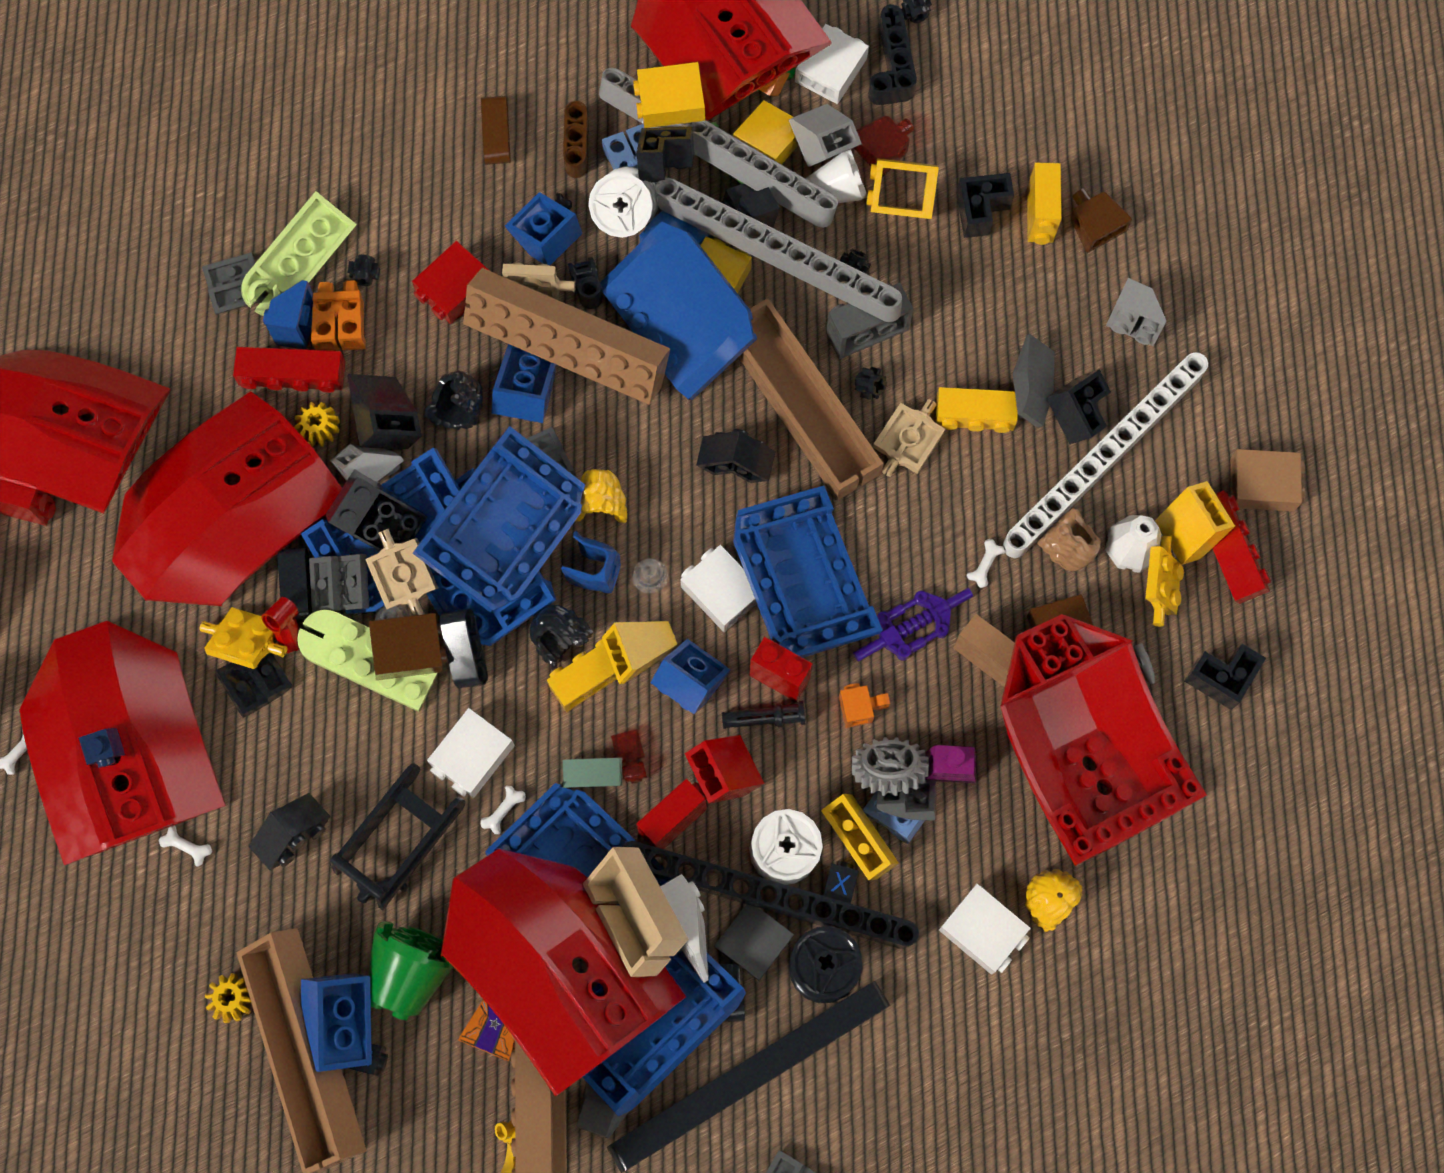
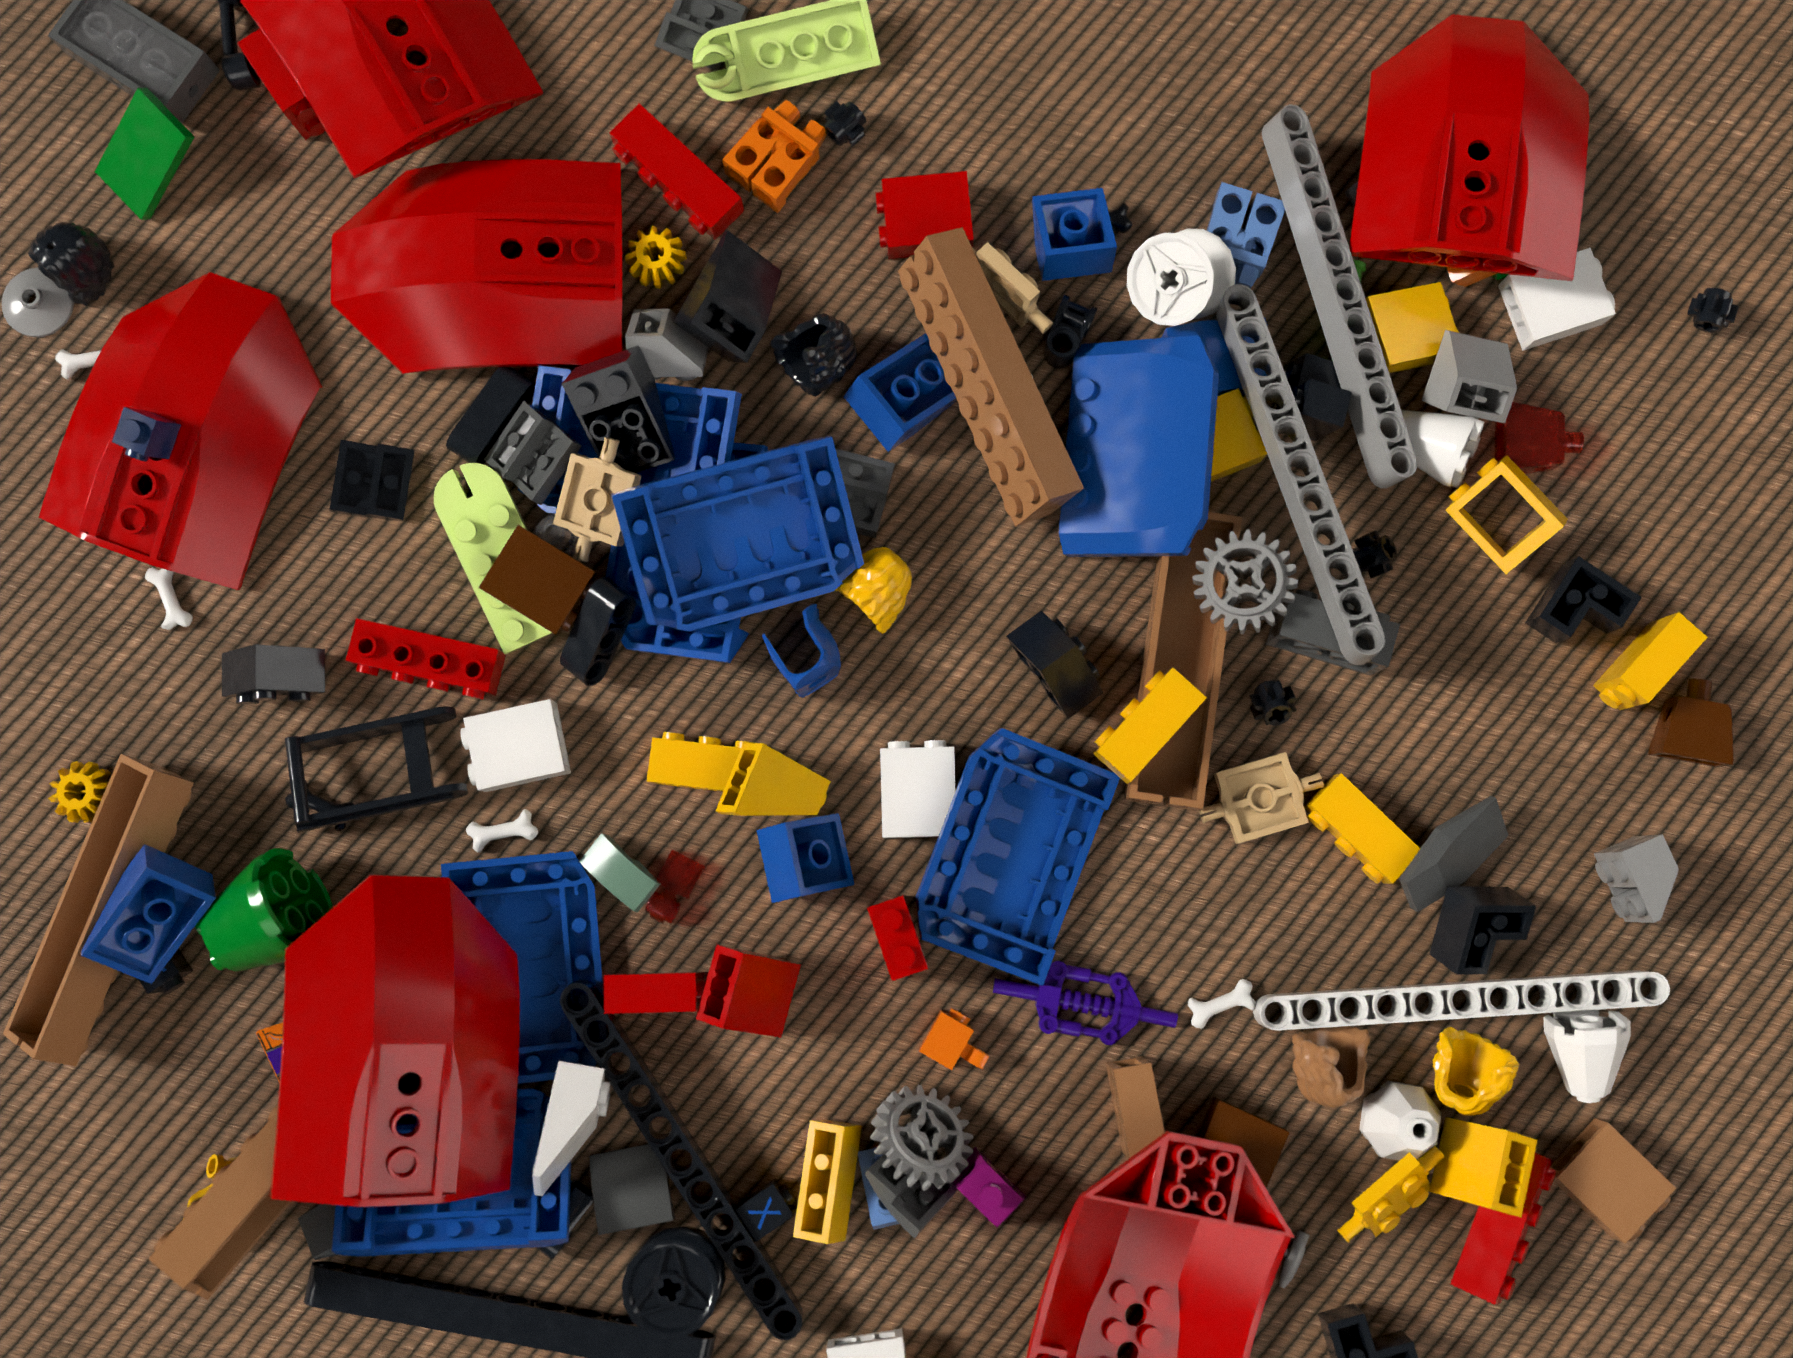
camera: 45 degrees right, 10 degrees up
(241, 639) = (393, 429): yellow plate -> none
(281, 621) = (440, 447): red piece -> none
(291, 316) = (723, 114): blue slope -> none
(373, 749) = (425, 657): none -> red brick
(495, 130) = (1118, 75): reddish brown beam -> none
(555, 632) = (705, 692): black hair -> none
(575, 129) = (1201, 142): reddish brown beam -> none
(644, 922) = (517, 1080): tan piece -> none
(650, 575) = (868, 718): clear cone -> none
(664, 149) = (1271, 250): black brick -> none
(669, 95) = (1333, 195): yellow brick -> none
(730, 720) = (859, 976): black pin -> none
(797, 306) = (1232, 570): none -> light grey gear
(802, 839) = (743, 1152): white piece -> none
(815, 441) = (1148, 724): none -> yellow brick
(894, 53) = (1637, 345): black beam -> none
(1145, 483) = (1471, 1071): none -> yellow hair
(1193, 423) = (1588, 1050): none -> white cone

